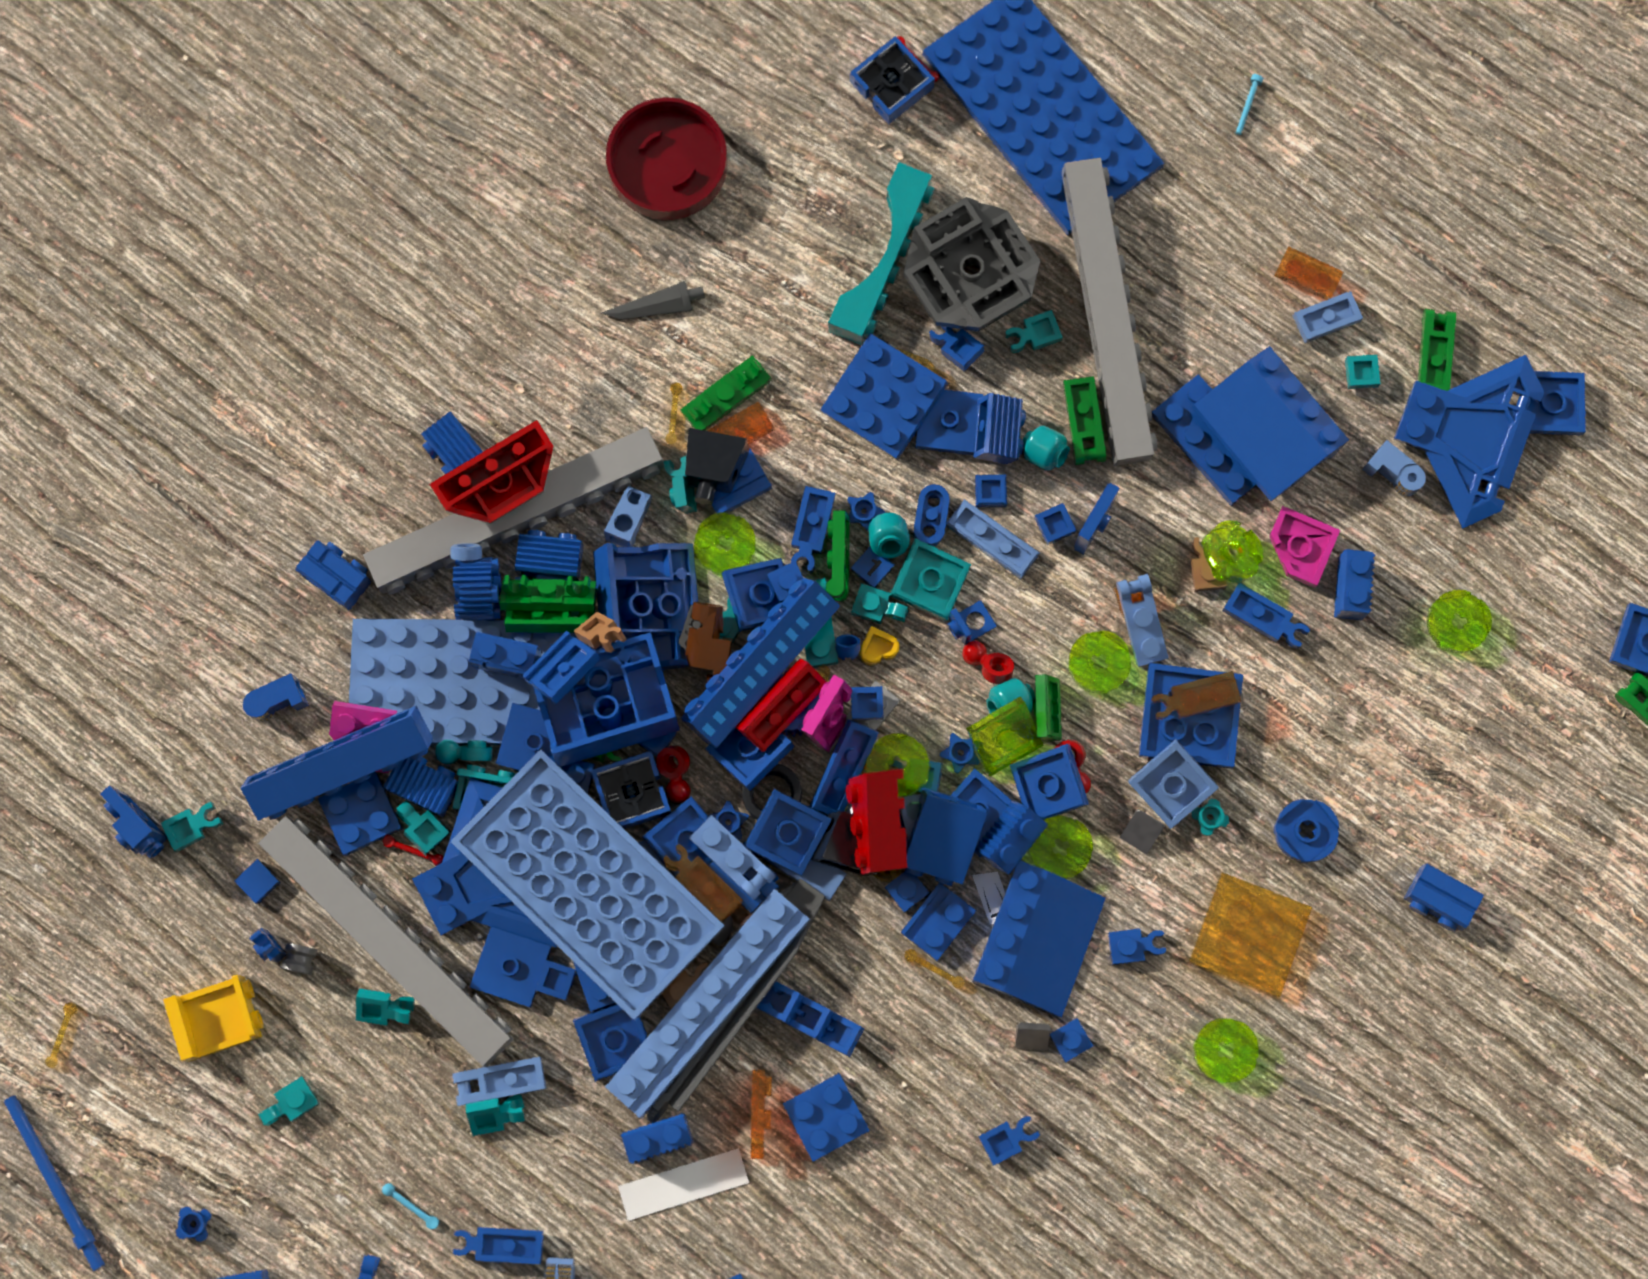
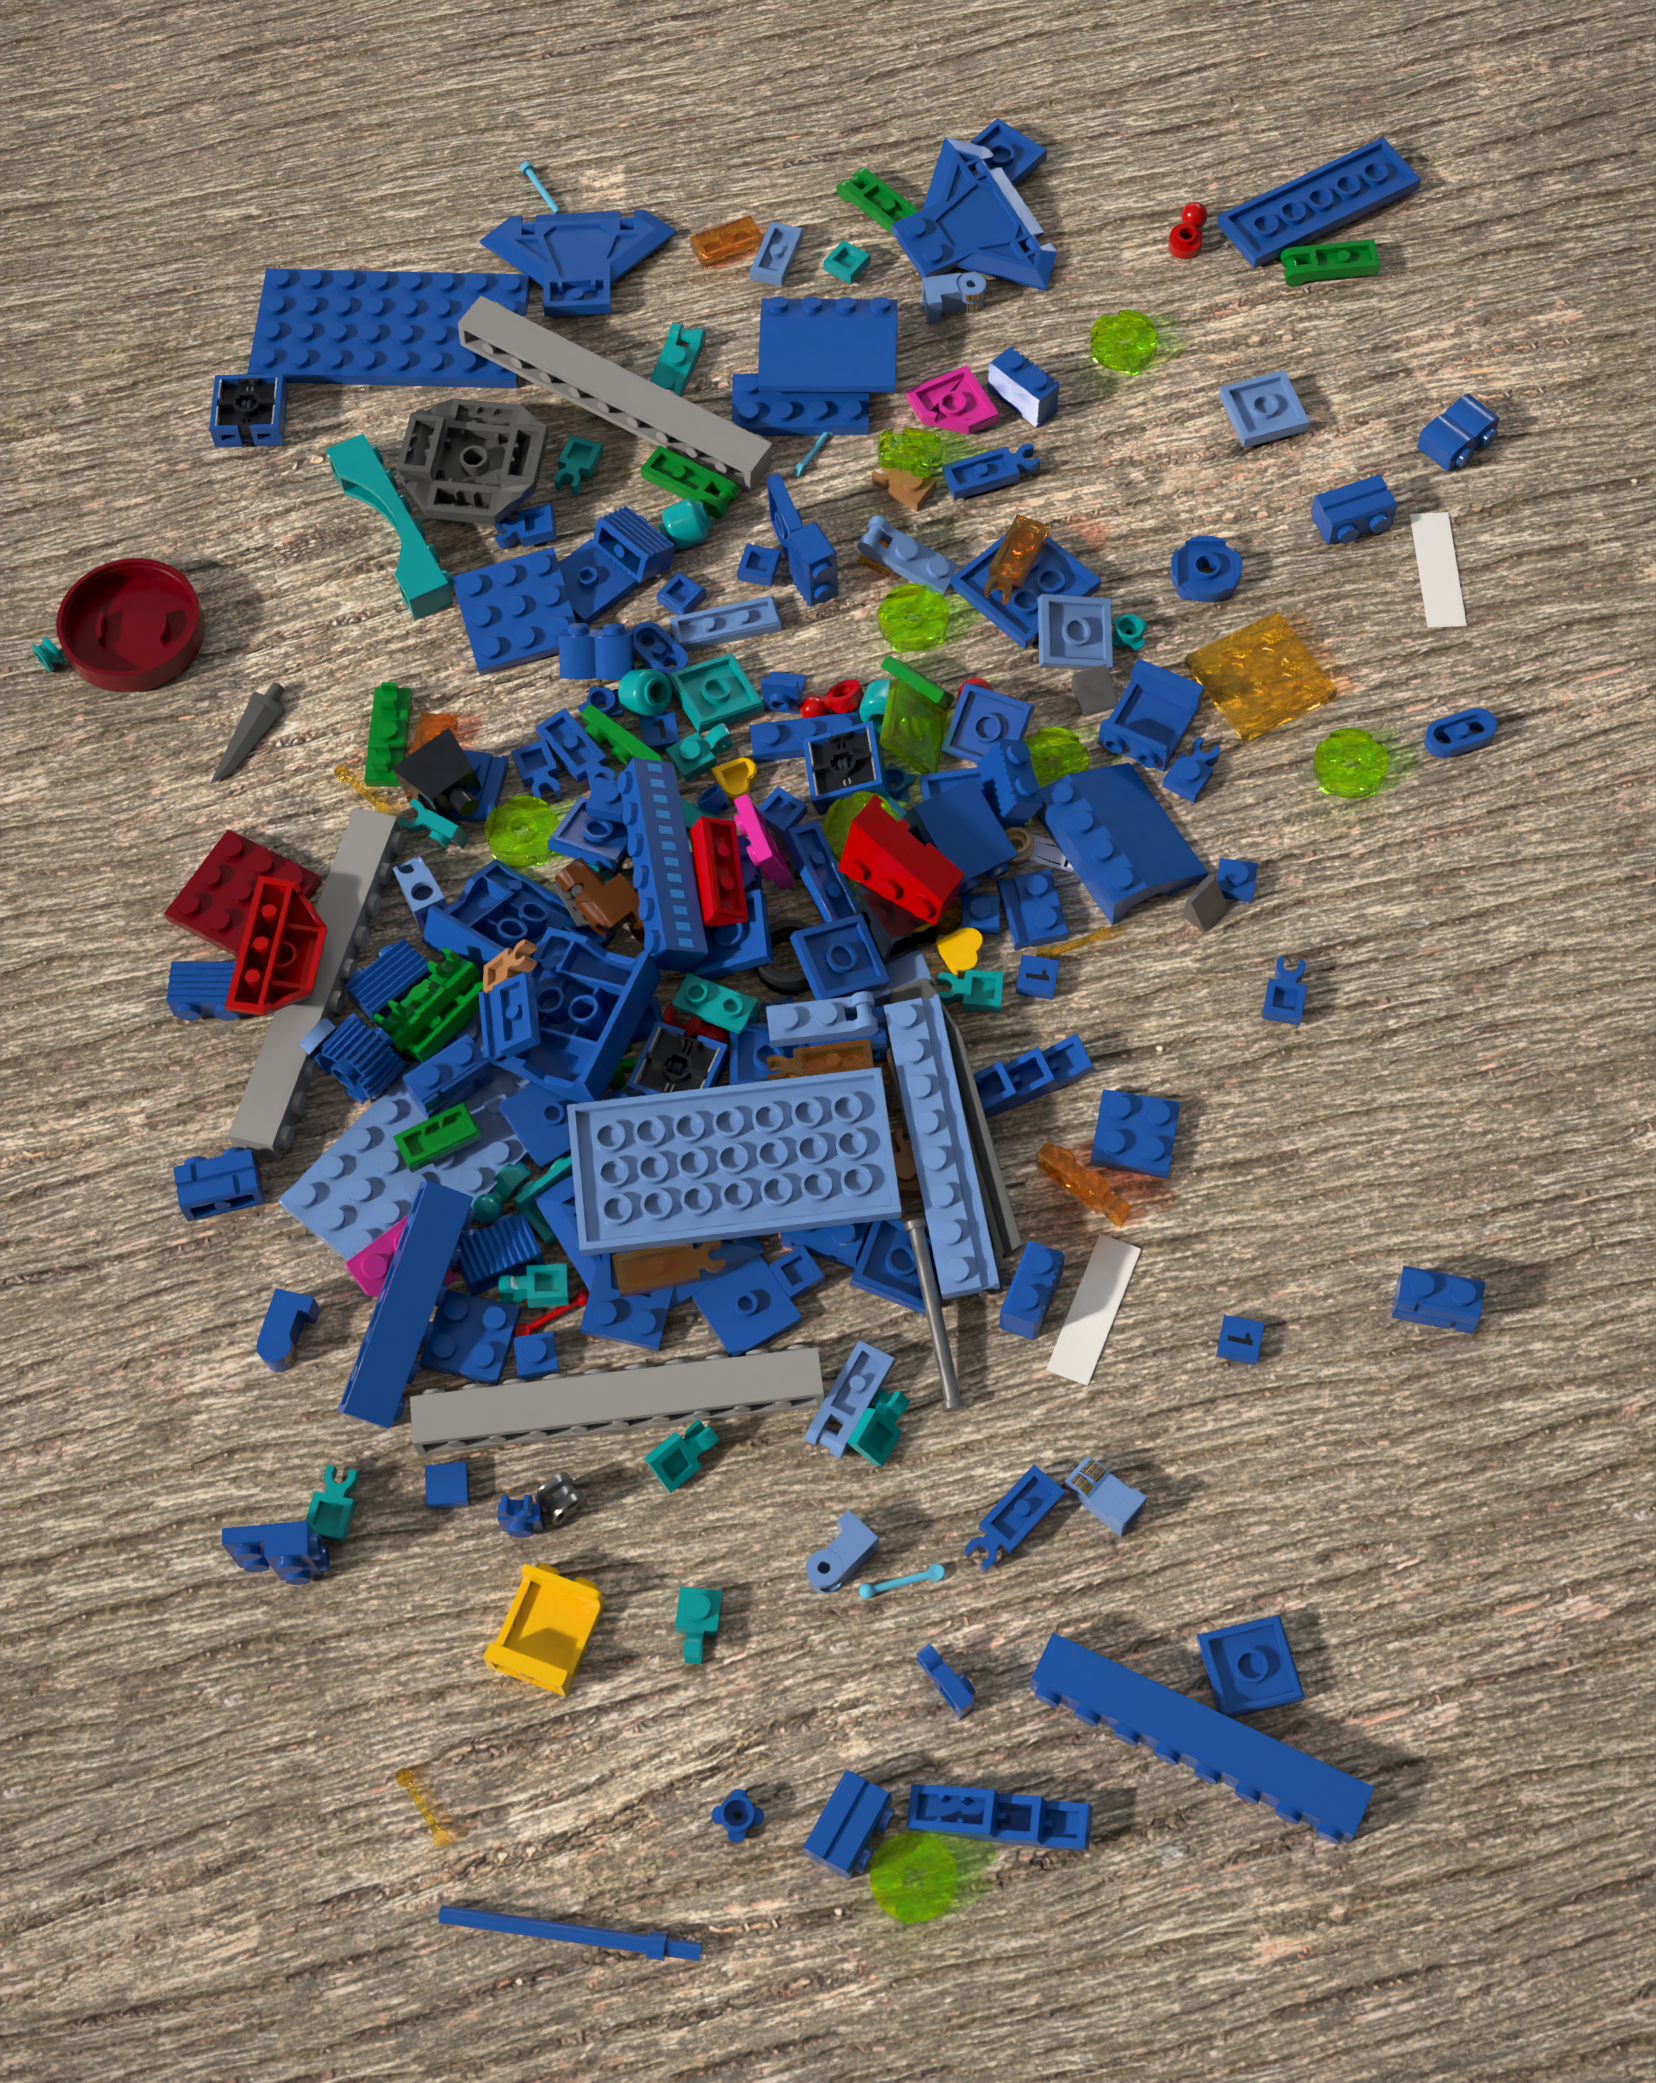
camera: 50 degrees left, 15 degrees down
(379, 863) = (536, 1355): none -> blue plate
(382, 1157) = (843, 1557): none -> medium blue leg
(463, 683) = (437, 1137): none -> green plate
(485, 897) = (663, 1267): none -> clear orange plate
(542, 393) = (222, 888): none -> dark red plate
(593, 1090) = (916, 1230): none -> flat silver bar
(603, 125) = (48, 654): none -> teal bush
(691, 778) = (716, 1004): none -> teal bracket
(779, 511) = (537, 768): none -> blue plate
(846, 935) = (979, 990): none -> teal plate
(869, 899) = (960, 950): none -> yellow tile
(889, 965) = (1037, 977): none -> blue tile
(891, 479) = (596, 653): none -> blue brick
(937, 716) = (845, 765): none -> piece
(947, 666) = (784, 738): none -> blue plate
(984, 866) = (1022, 838): none -> tan plate
(1077, 565) = (813, 564): none -> blue brick
(1150, 886) = (1151, 716): none -> blue panel
(1164, 483) = (801, 467): none -> medium azure hinge
(1174, 327) = (678, 362): none -> teal plate
(1212, 180) = (578, 254): none -> blue plate
(1313, 1108) = (1458, 733): none -> blue plate
(1447, 991) = (1438, 570): none -> white sticker
(1482, 766) = (1264, 408): none -> medium blue plate
(1576, 922) = (1458, 433): none -> blue brick
(1616, 584) = (1193, 217): none -> red plate

